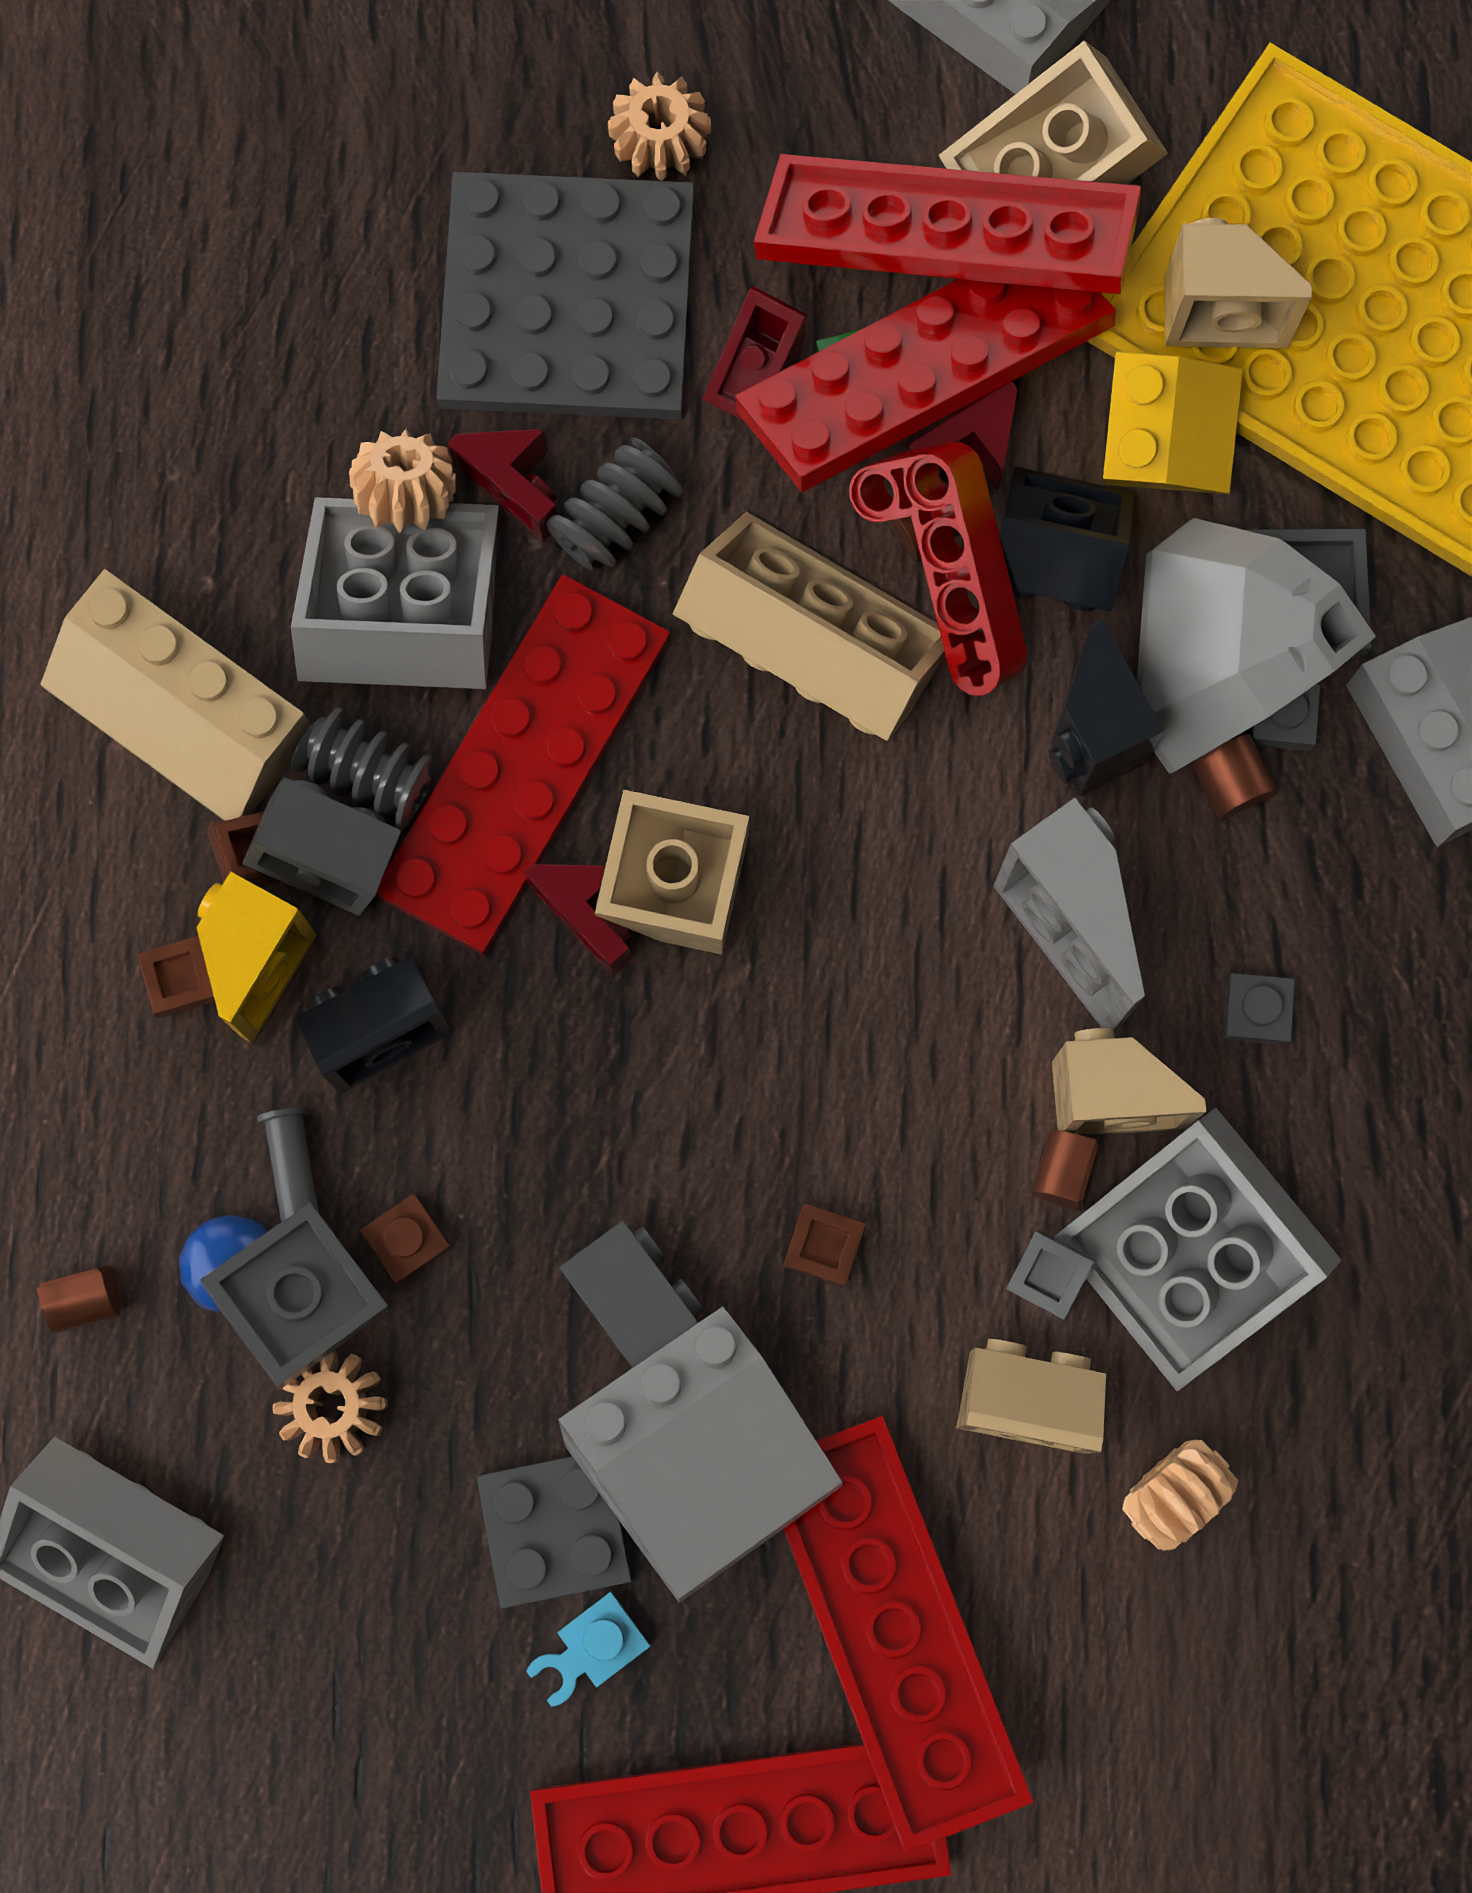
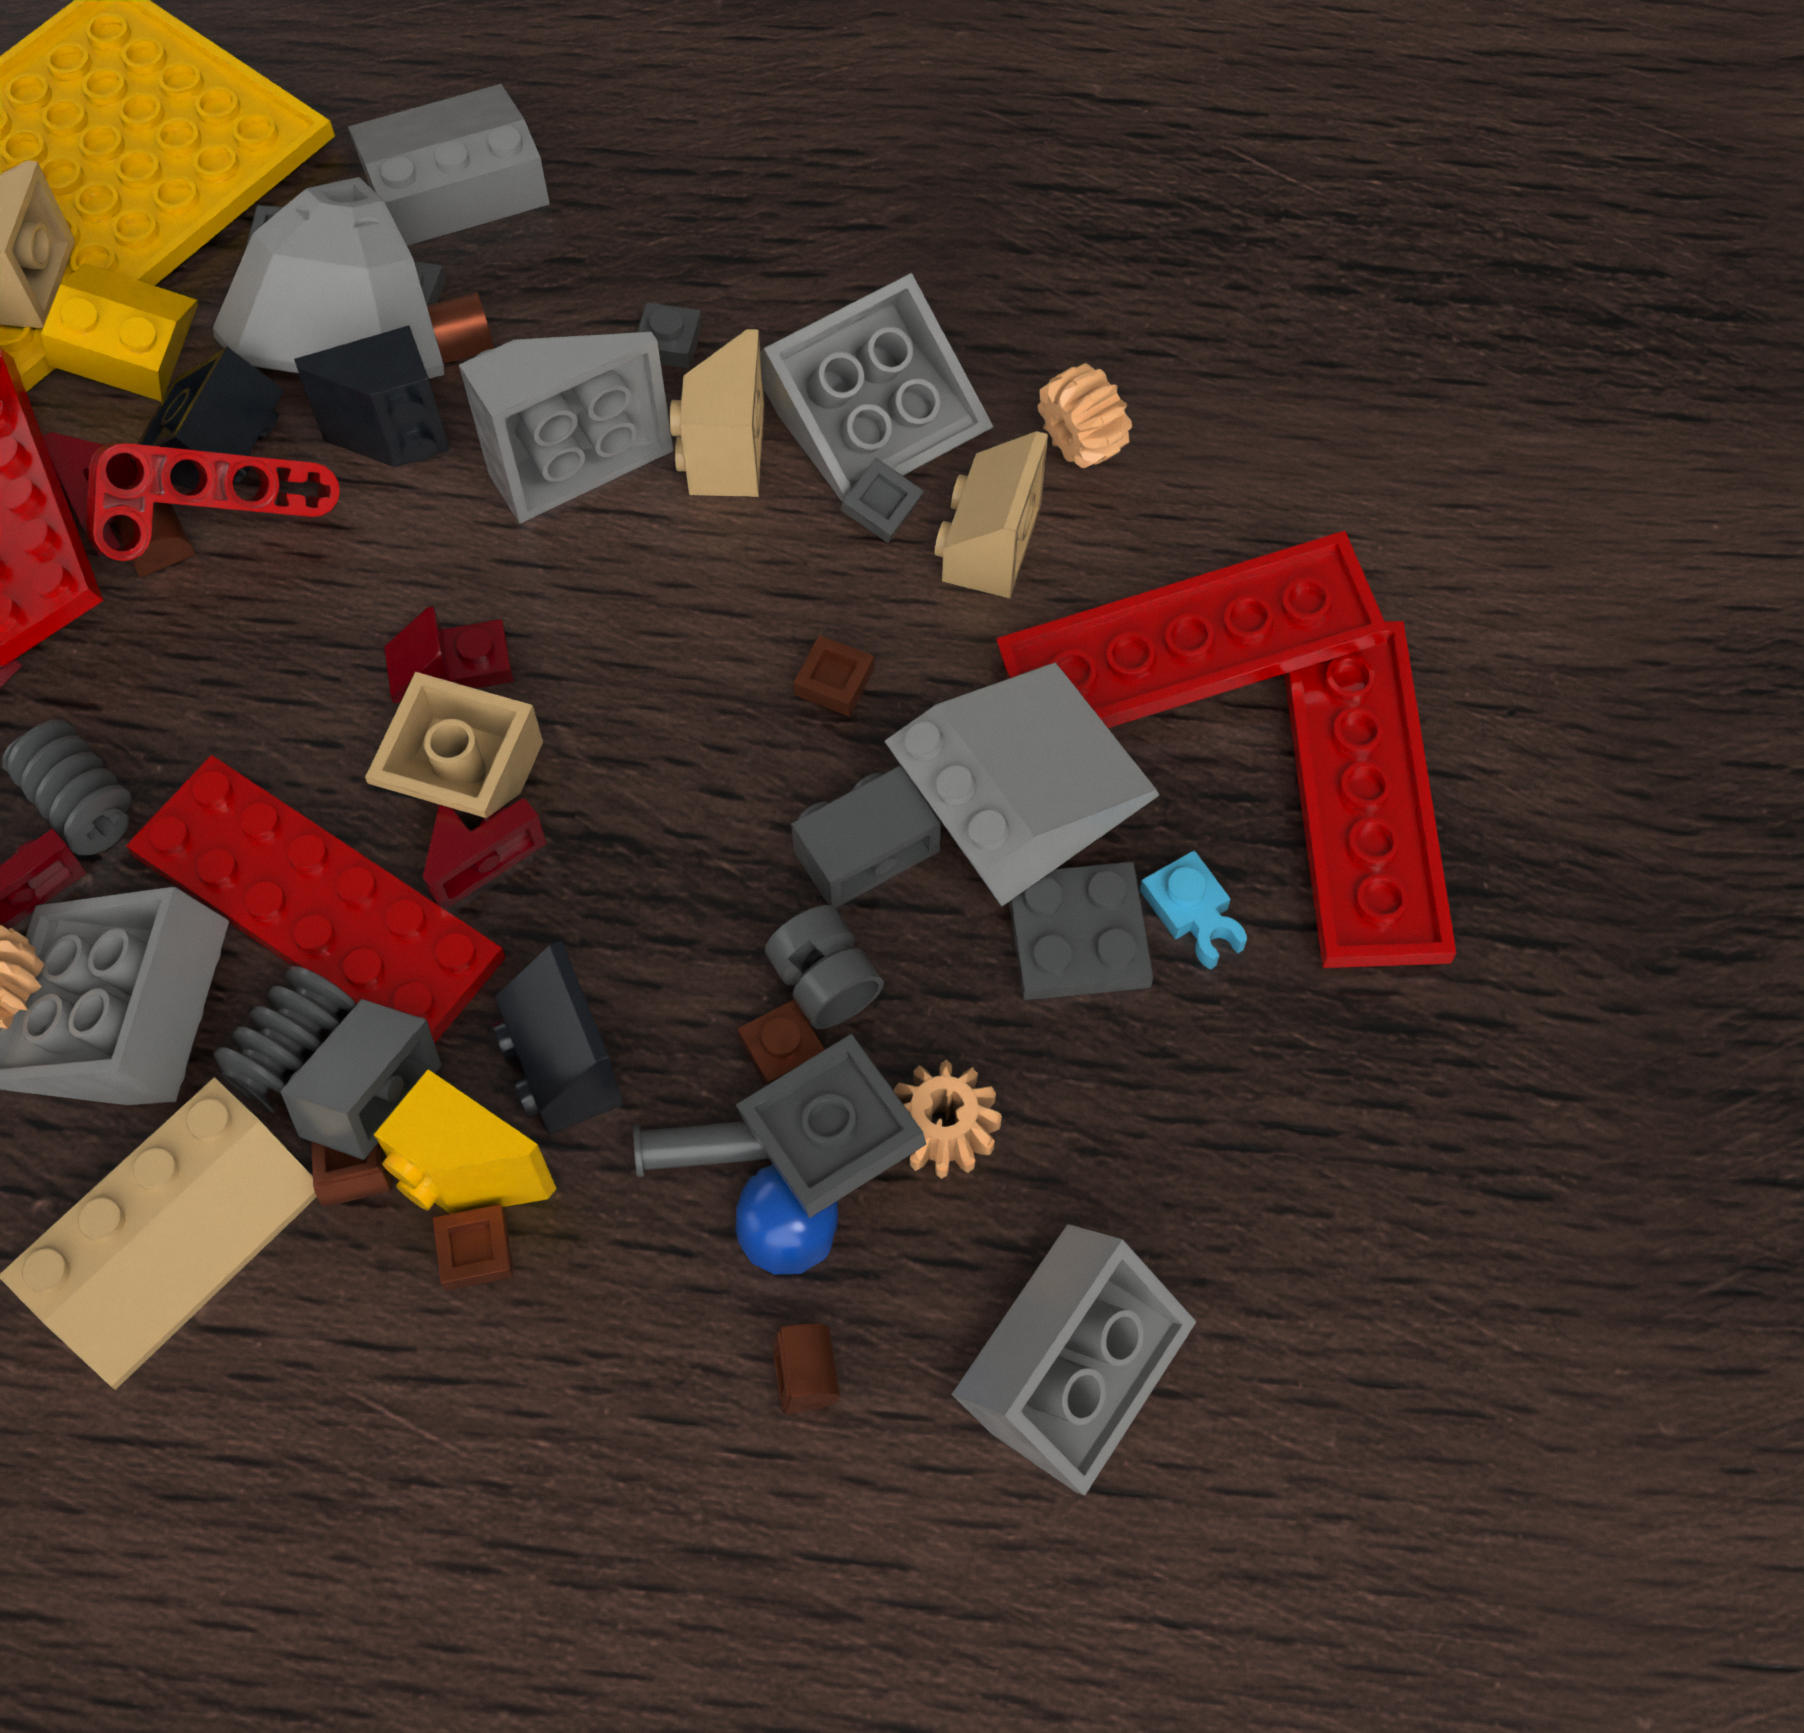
camera: 85 degrees left, 15 degrees down
(477, 1271) = (819, 959): none -> dark grey wheel
(809, 843) = (463, 655): none -> dark red slope
(812, 625) = (239, 631): tan slope -> none
(1066, 1169) = (789, 477): copper brick -> none

